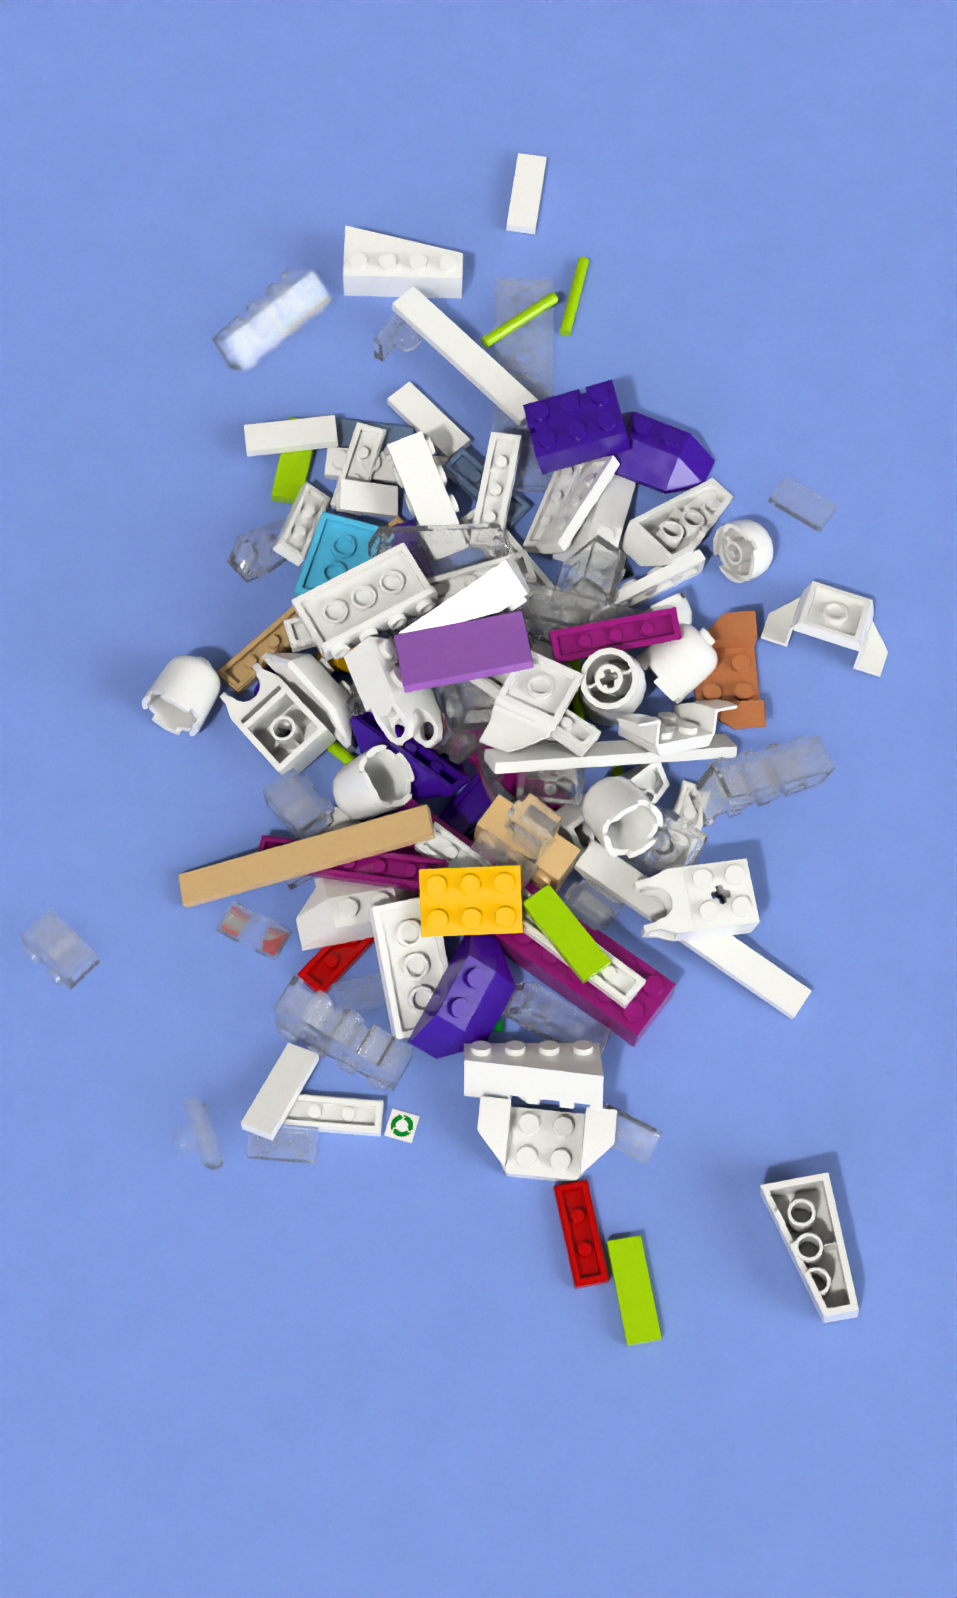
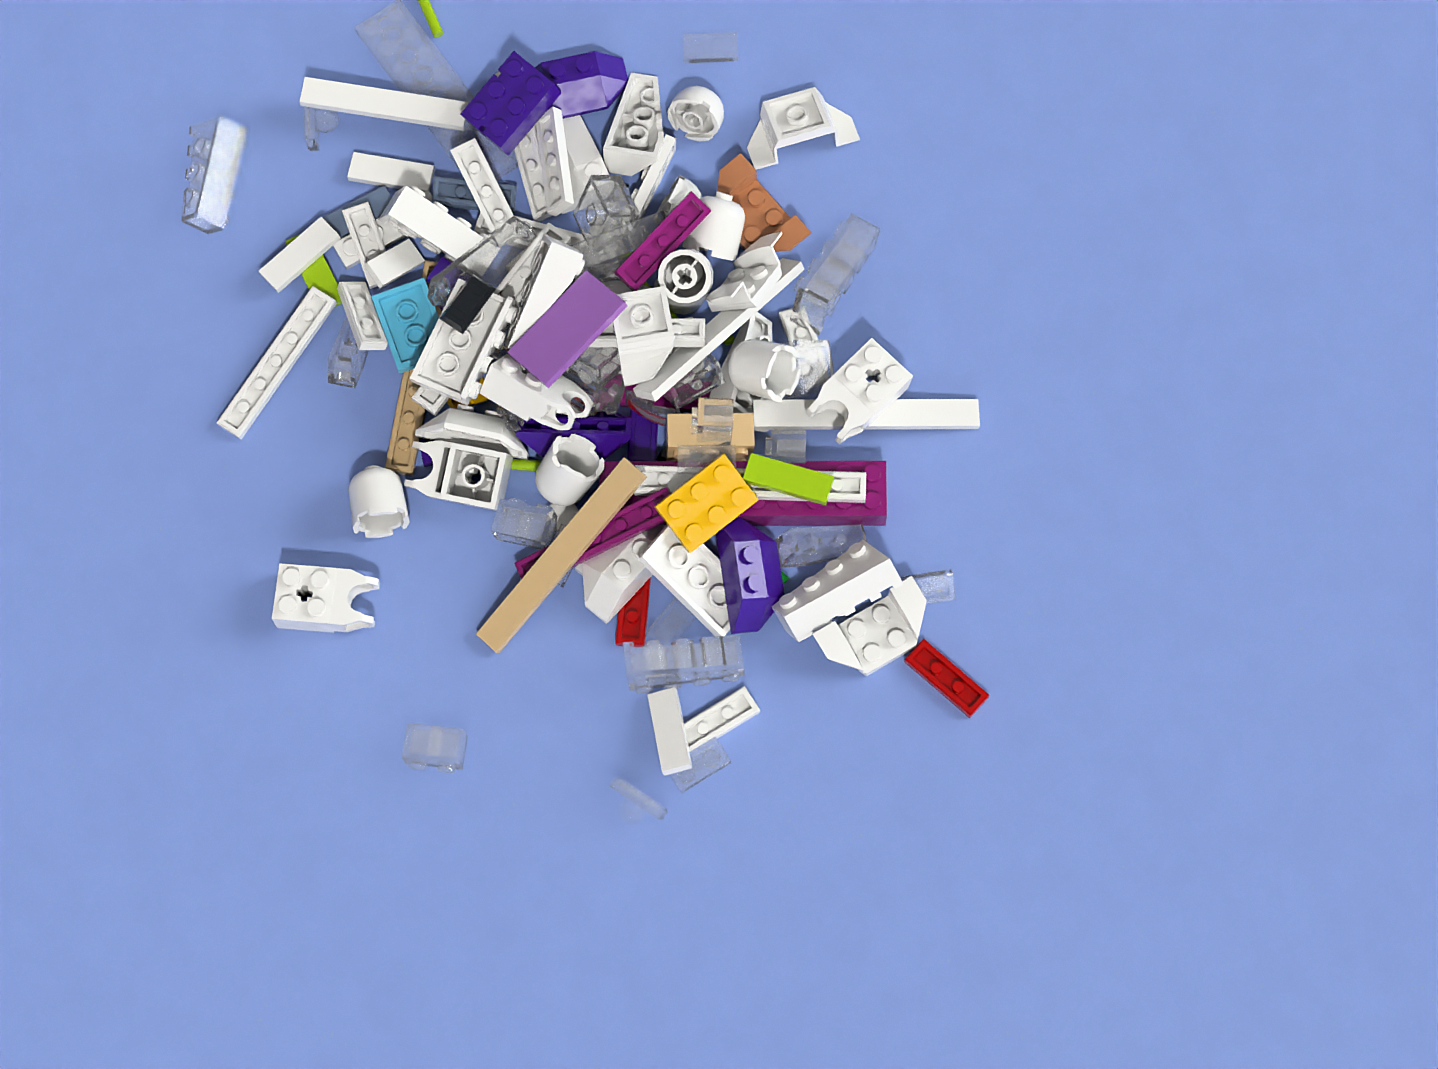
camera: 30 degrees left, 5 degrees up
(74, 751) = (330, 601): none -> white brick
(197, 515) = (276, 363): none -> white tile
(253, 931) = (560, 635): clear slope -> none
(392, 265) = (276, 69): white wedge -> none
(393, 569) = (467, 303): none -> black tile
(401, 1125) = (769, 694): white sticker -> none
(519, 320) = (400, 48): lime piece -> none
(633, 1290) = (1010, 690): lime tile -> none
(813, 1236) = (1104, 567): white wedge -> none

